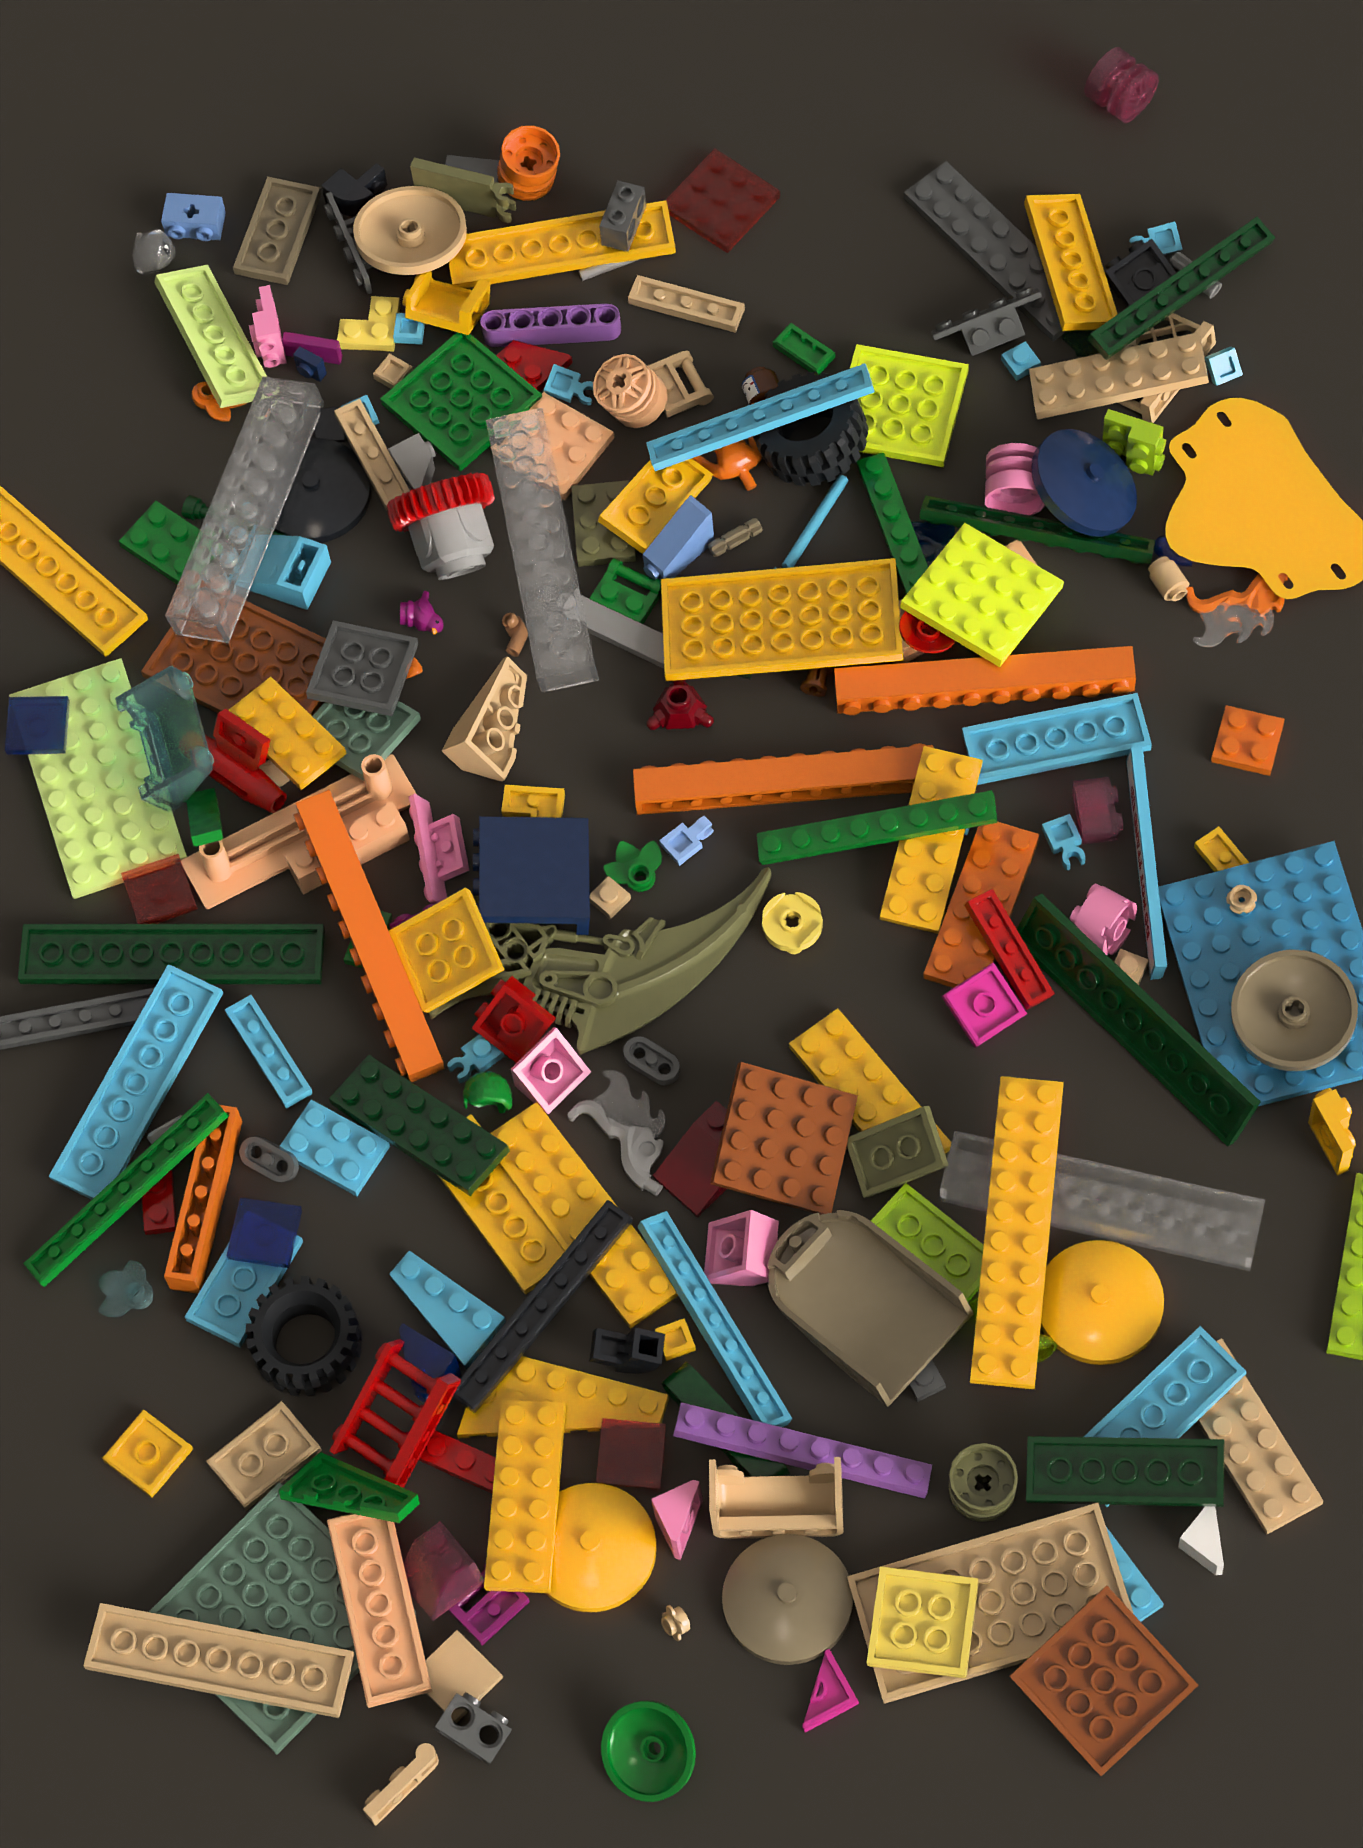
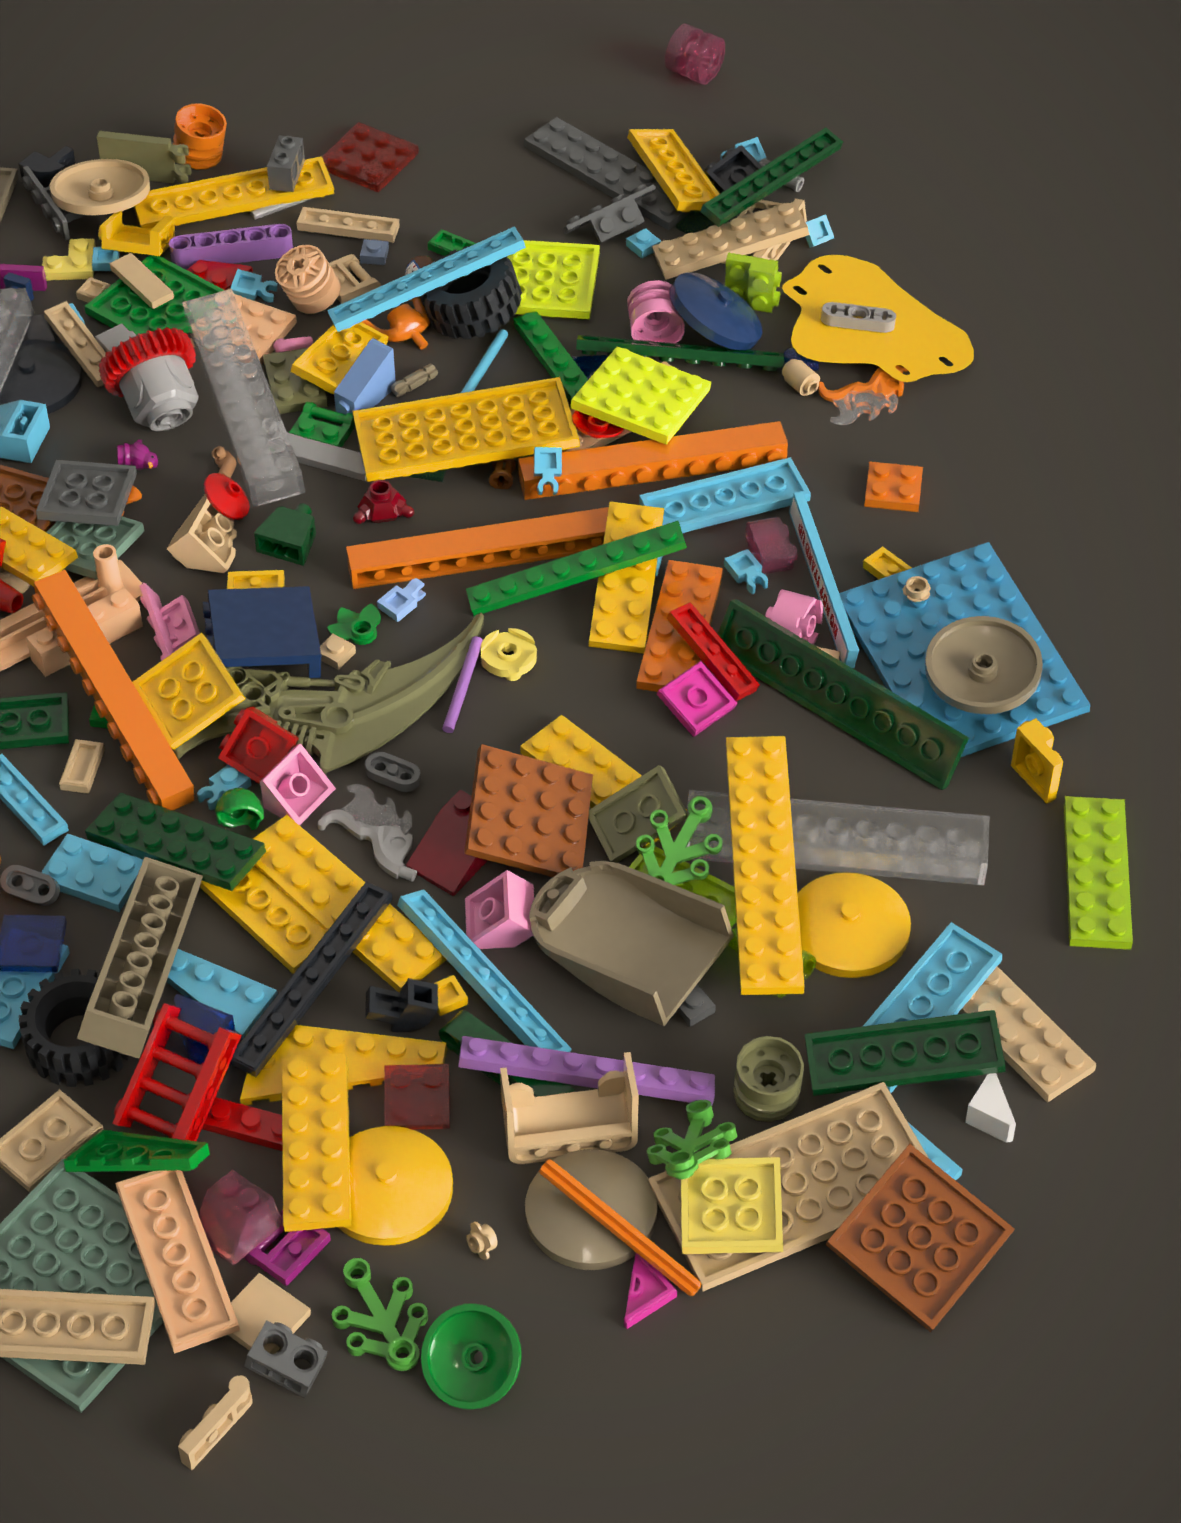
camera: 15 degrees left, 15 degrees down
(332, 1014) = (82, 766): none -> tan tile
(371, 1274) = (140, 958): none -> dark tan brick
(446, 370) = (141, 280): none -> tan tile
(512, 683) = (226, 496): none -> red dish
(571, 1695) = (382, 1320): none -> bright green plant
(574, 739) = (287, 534): none -> dark green torso
(615, 473) = (292, 344): none -> bright pink arm
(677, 1513) = (469, 1139): bright pink slope -> none
(712, 345) = (374, 252): none -> sand blue plate
(738, 957) = (462, 684): none -> medium lavender bar
(810, 1631) = (620, 1227): none -> orange axle
(863, 686) = (548, 465): none -> medium azure plate
(882, 1573) = (684, 1161): none -> bright green plant
(929, 1205) = (678, 851): none -> bright green plant
(1236, 507) = (872, 318): none -> light grey beam

